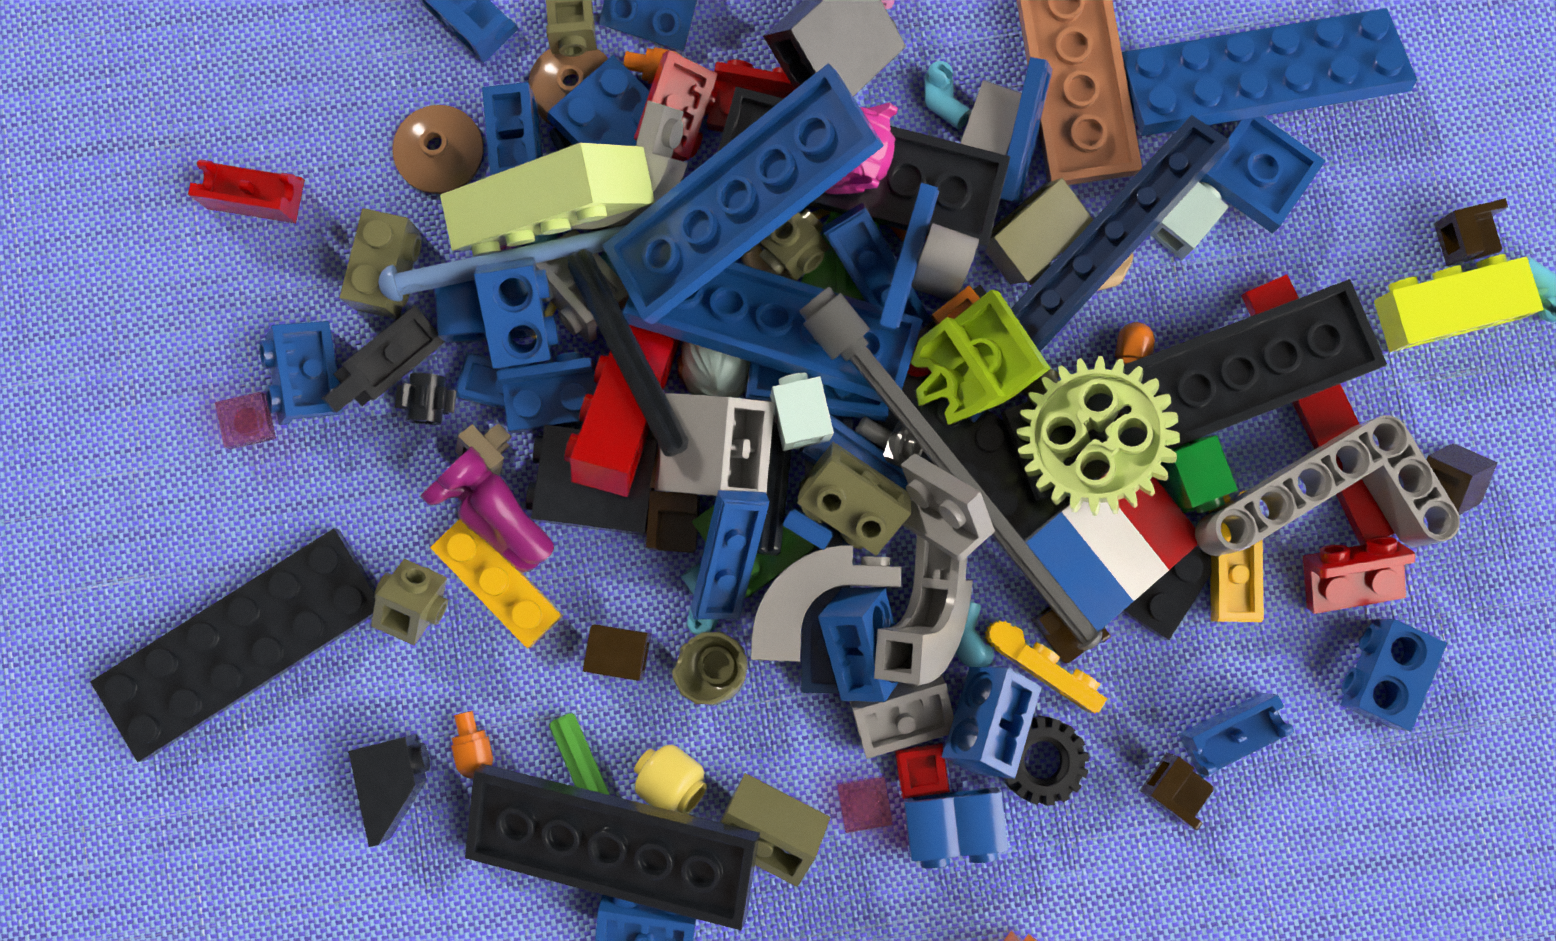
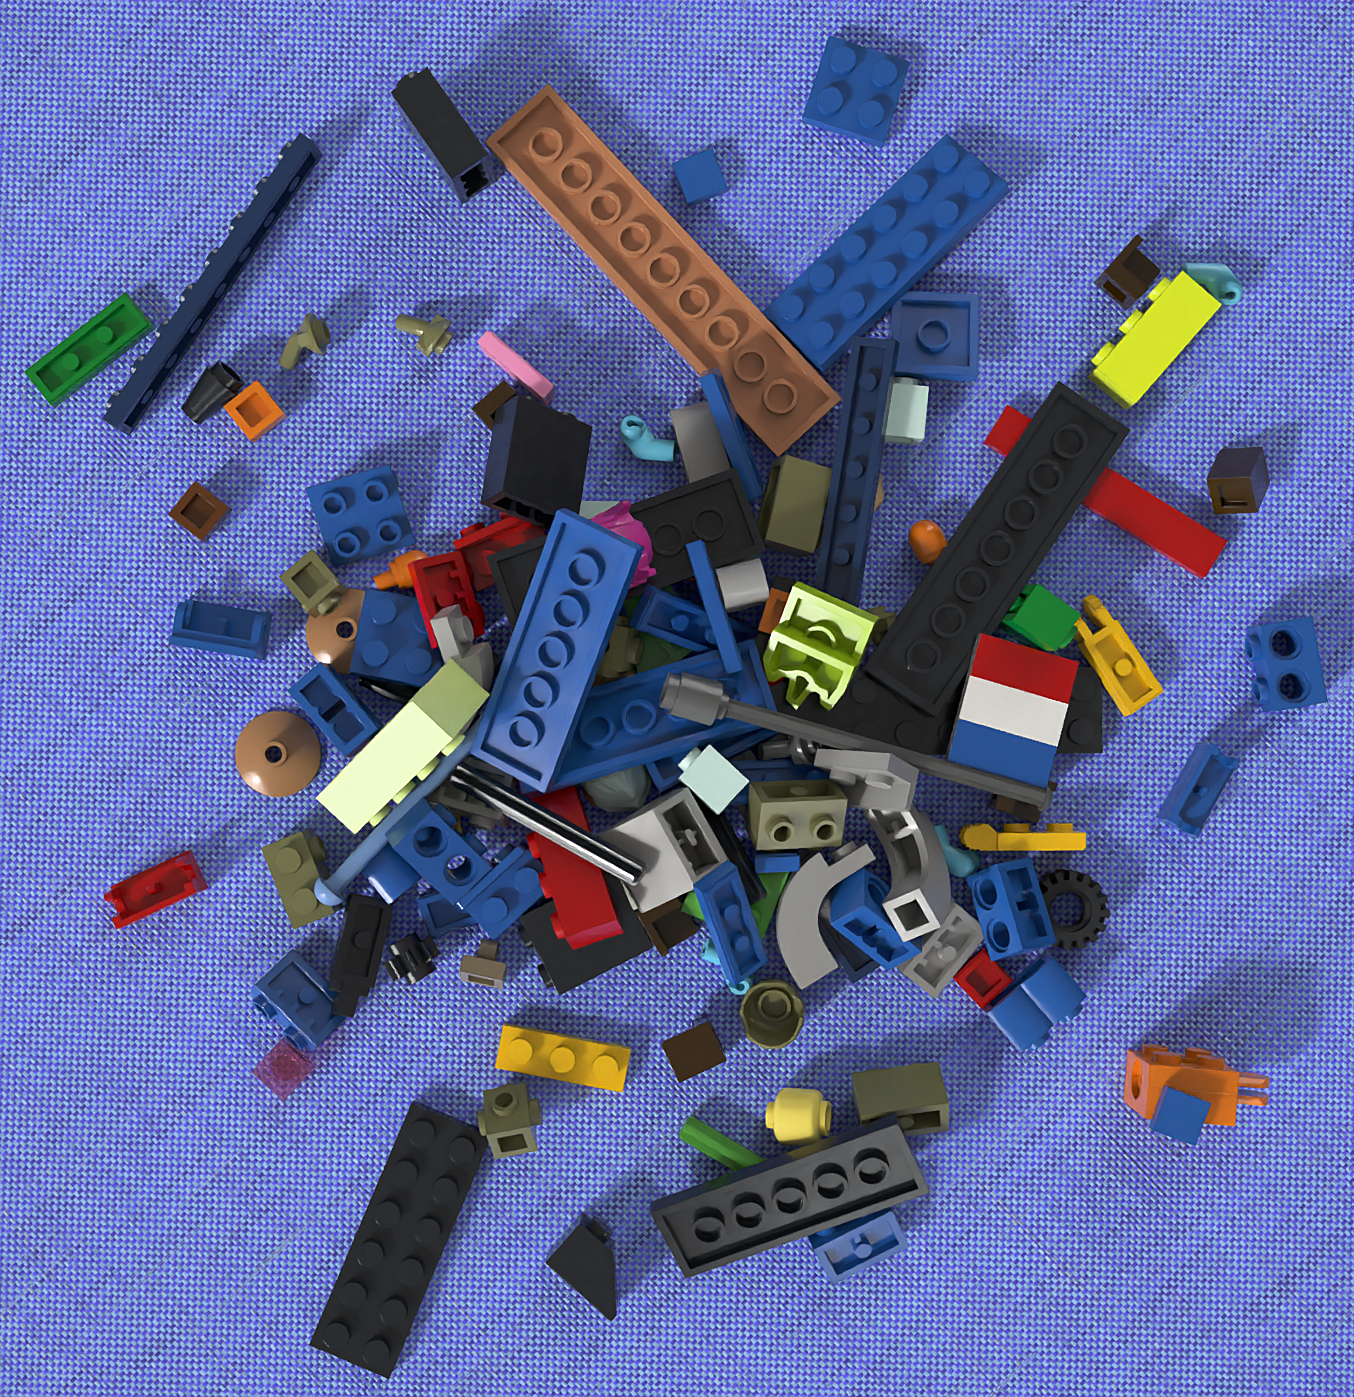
camera: 35 degrees left, 5 degrees up
(470, 746) = (631, 1193): orange cylinder -> none
(491, 511) = (523, 1010): magenta piece -> none
(864, 804) = (955, 1032): clear pink plate -> none
(1129, 466) = (988, 655): yellowish green gear -> none
(1178, 789) = (1182, 861): dark brown panel -> none
(1323, 478) = (1142, 555): light grey beam -> none
(1356, 575) = (1210, 606): bracket -> none

